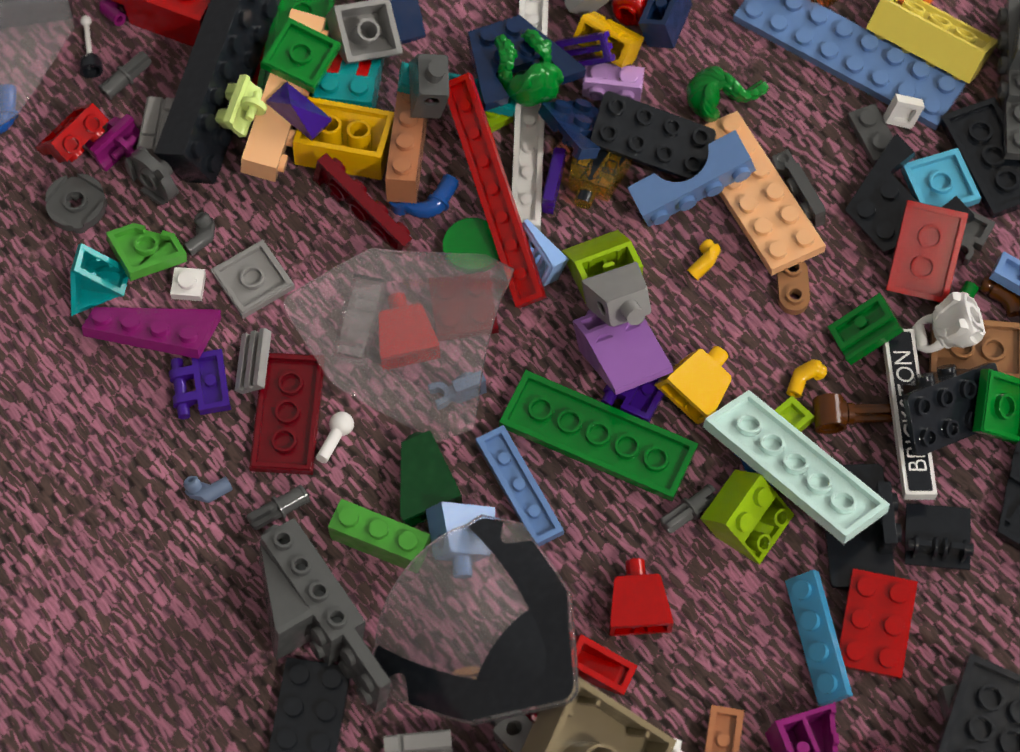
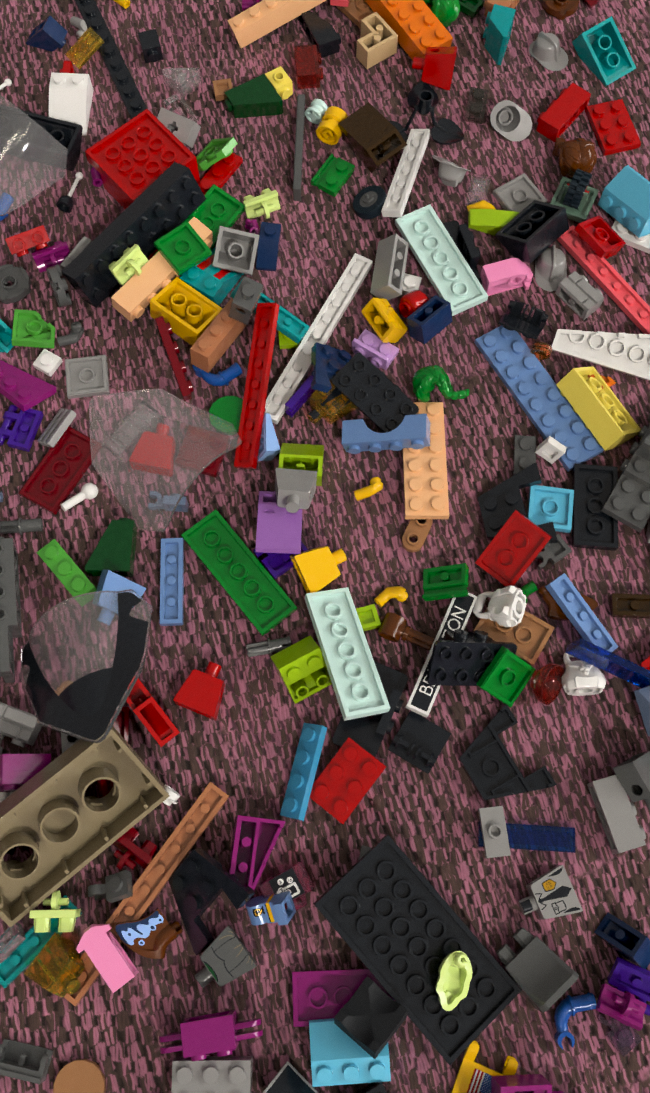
camera: 25 degrees right, 5 degrees up
(125, 75) = (82, 218): dark grey axle -> none
(299, 111) = (163, 283): dark purple slope -> none
(486, 58) = (319, 300): dark blue wing -> none
(539, 82) = (320, 327): green hair -> none
(604, 46) = (375, 322): dark purple tile -> none
(800, 186) = (455, 468): dark grey hinge -> none

